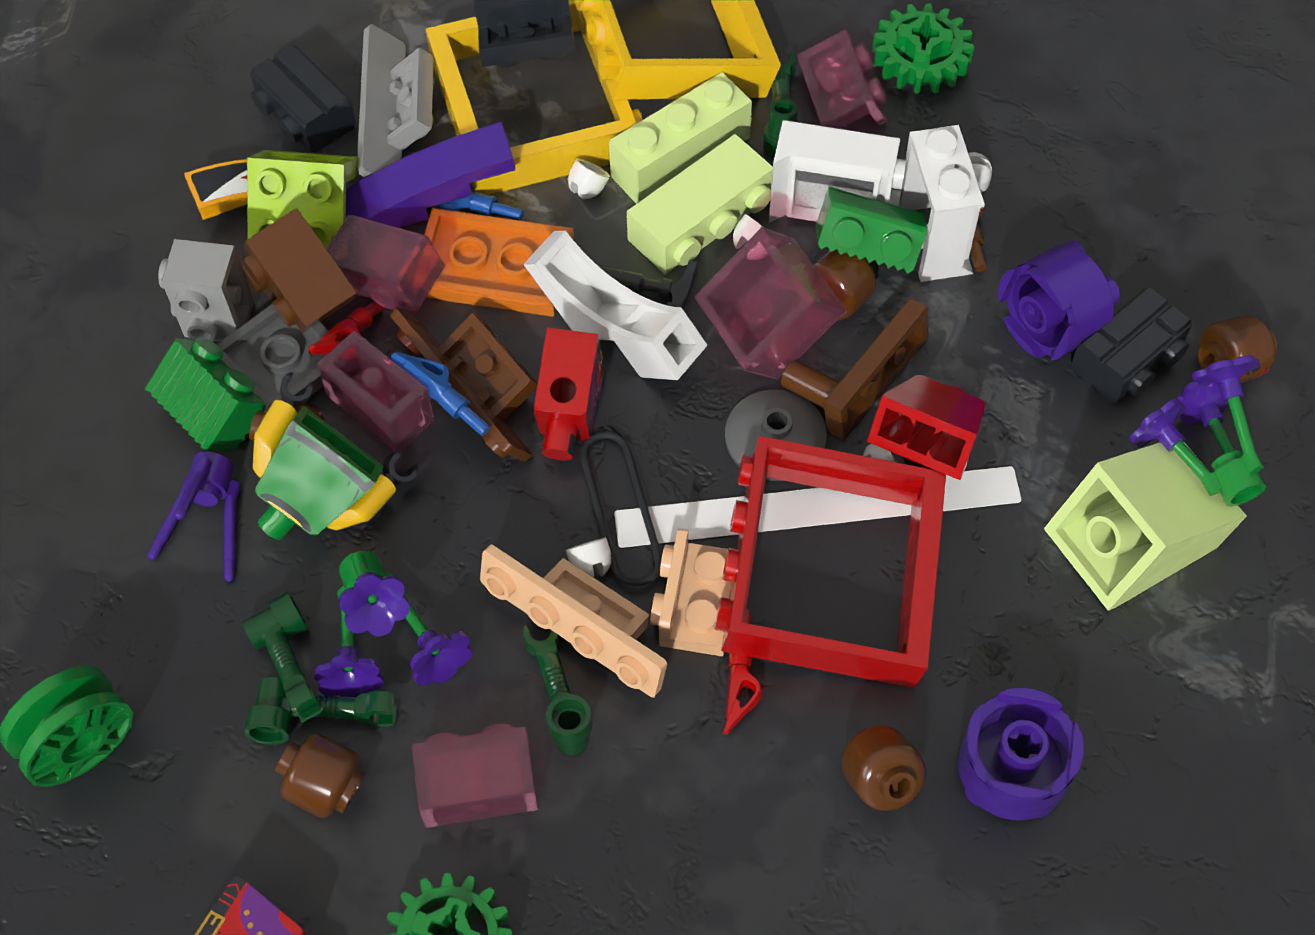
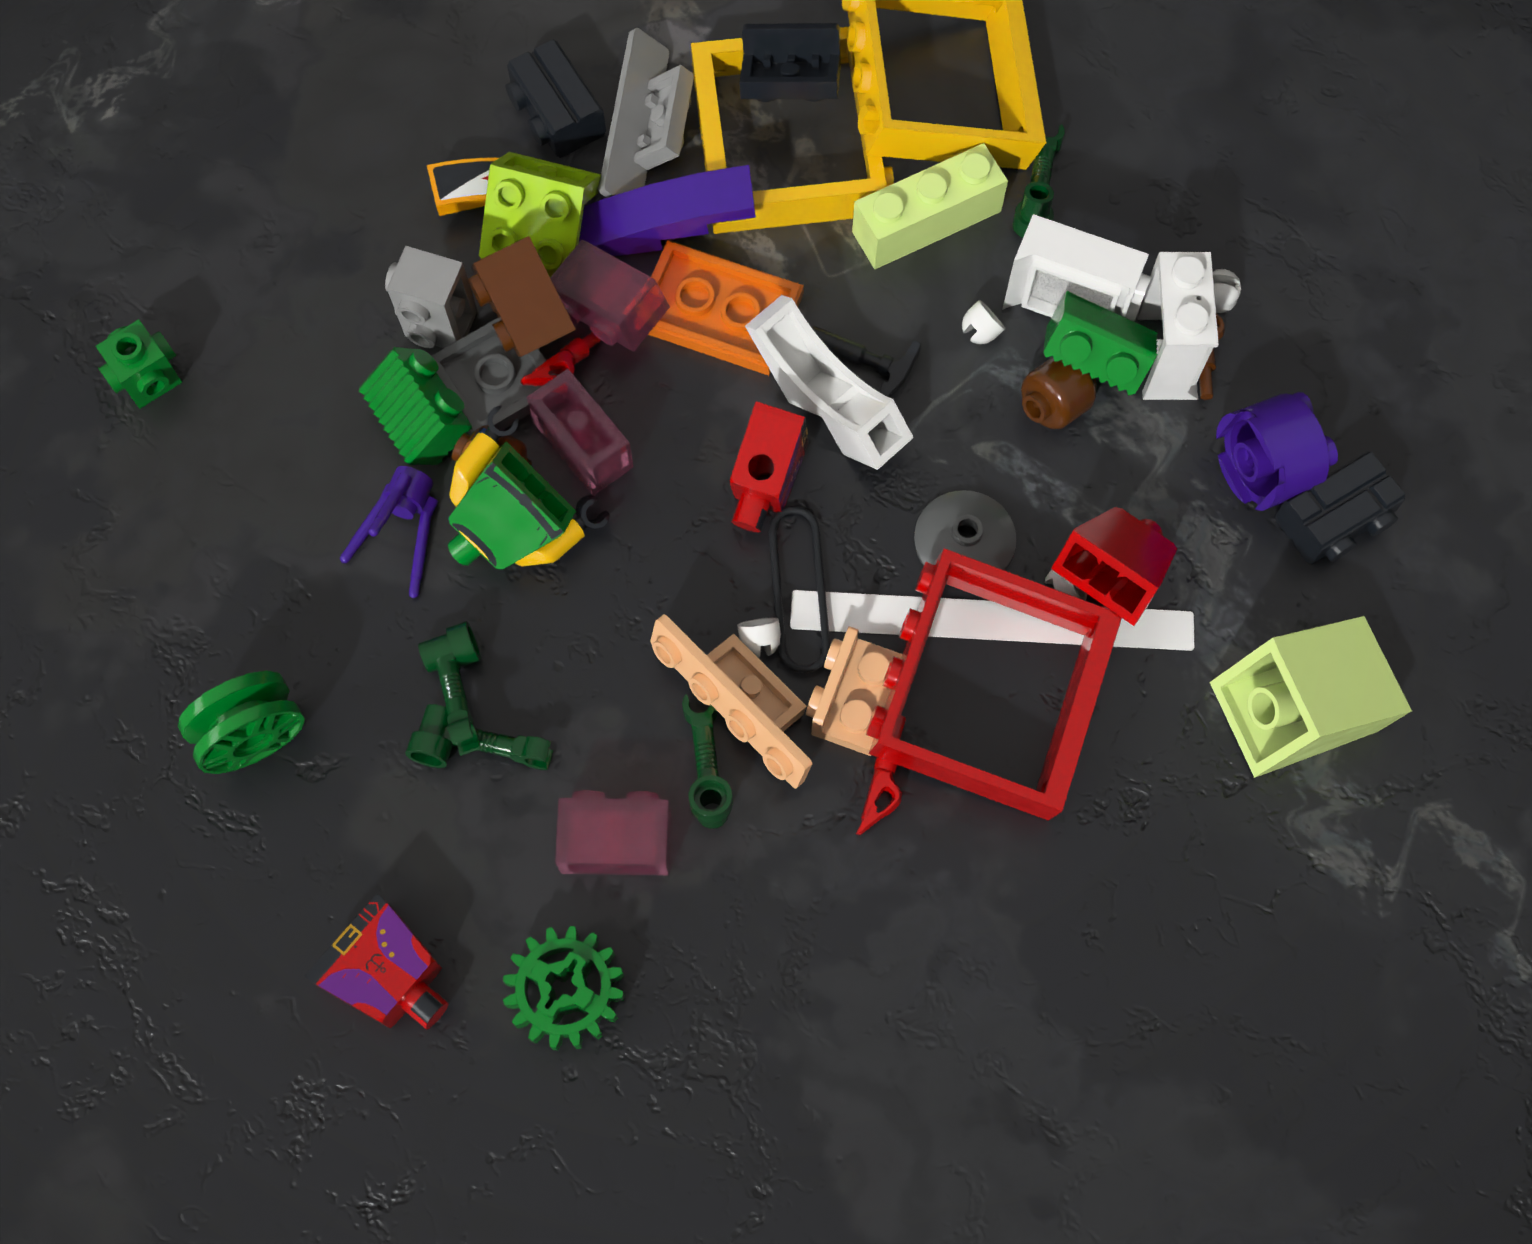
camera: 10 degrees right, 10 degrees up
(319, 775) = (469, 809): reddish brown head -> none
(374, 603) = (542, 655): dark purple plant -> none
(436, 379) = (639, 431): blue hand -> none
(480, 371) = (682, 425): reddish brown bracket -> none
(484, 205) = (721, 245): blue hand -> none
(586, 178) = (827, 233): white hinge -> none
(700, 204) = (936, 282): yellowish green brick -> none
(769, 303) = (983, 406): clear pink piece -> none
(841, 81) = (1107, 168): clear pink bracket -> none
(861, 387) = (1044, 517): reddish brown piece -> none
(883, 768) = (1000, 899): reddish brown head -> none
(944, 42) = (1221, 149): green gear -> none
(1049, 759) = (1162, 900): dark purple brick -> none
(1204, 400) = (1413, 666): plant -> none
(1239, 338) = (1446, 531): reddish brown head -> none

